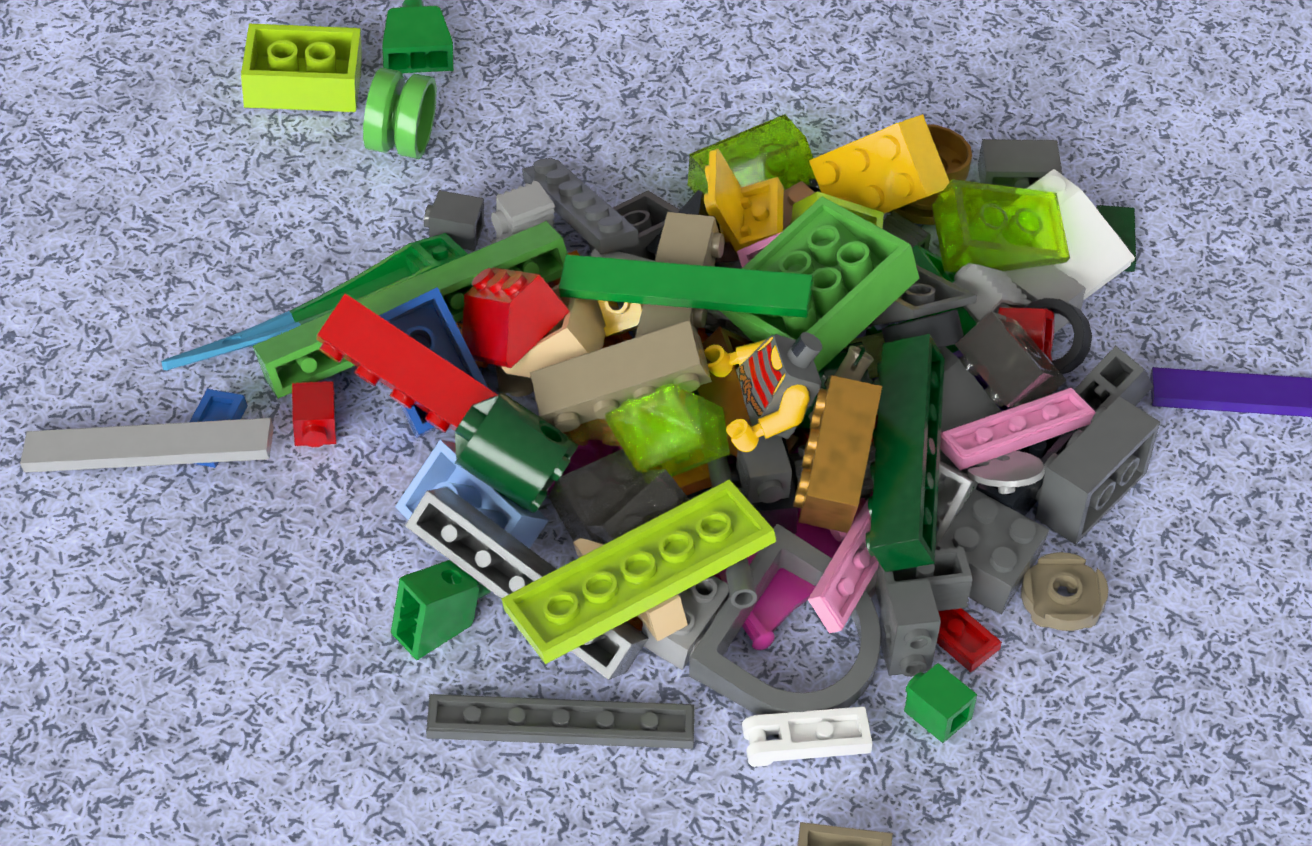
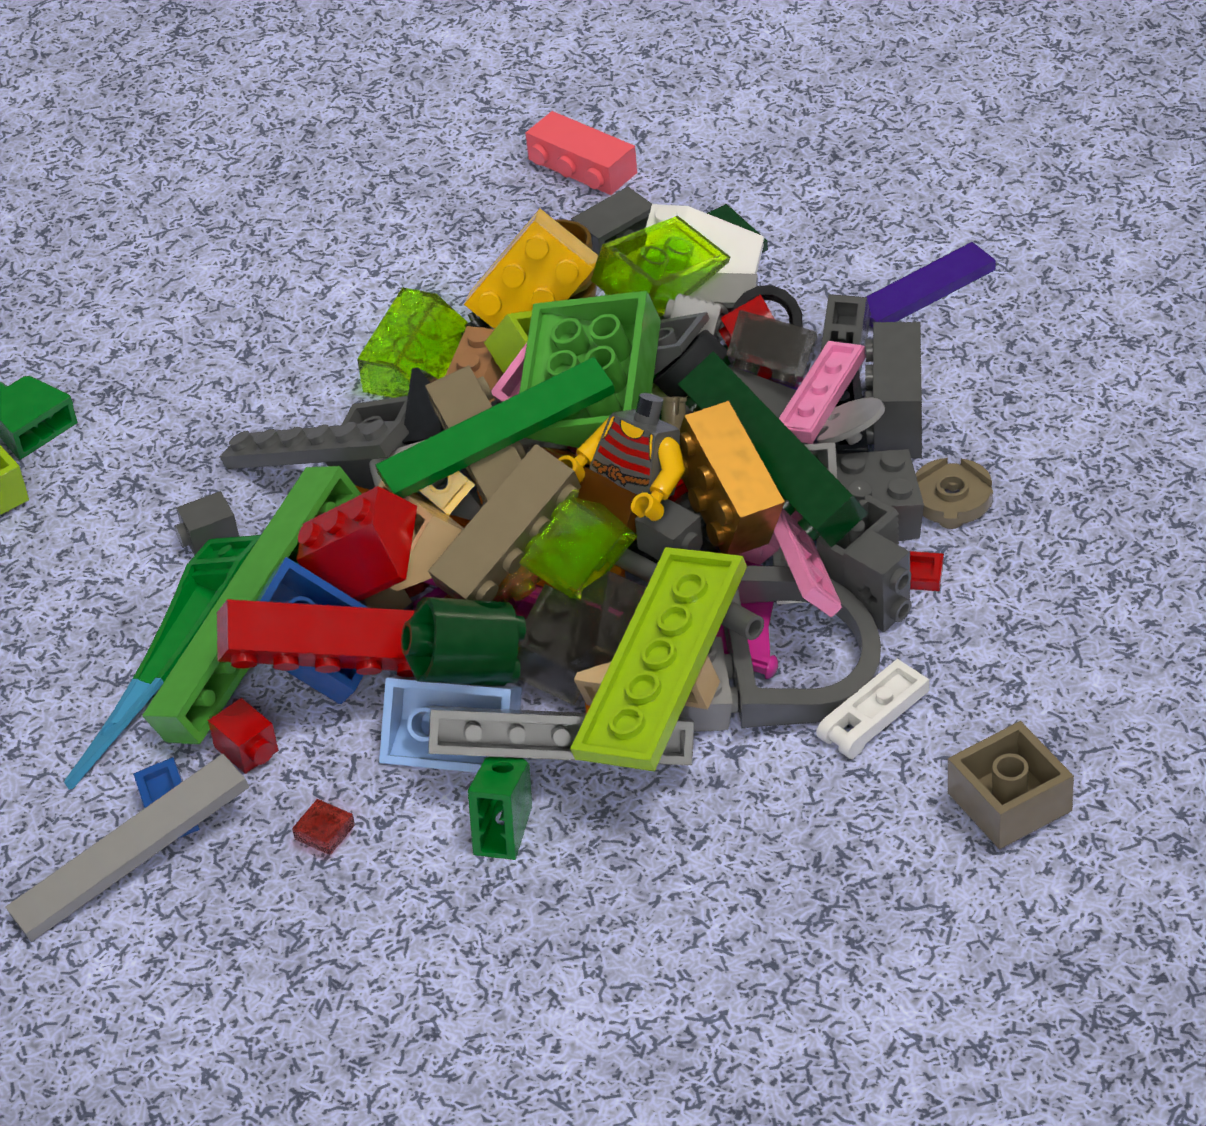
camera: 30 degrees left, 5 degrees down
(300, 530) = (323, 826): none -> clear red plate
(399, 113) = (77, 472): bright green wheel -> none
(521, 210) = (271, 480): light grey brick -> none
(560, 721) = (675, 826): dark grey tile -> none
(744, 212) = (456, 353): yellow bracket -> none
(939, 702) = (945, 621): green brick -> none
(1056, 85) = (581, 152): none -> coral brick

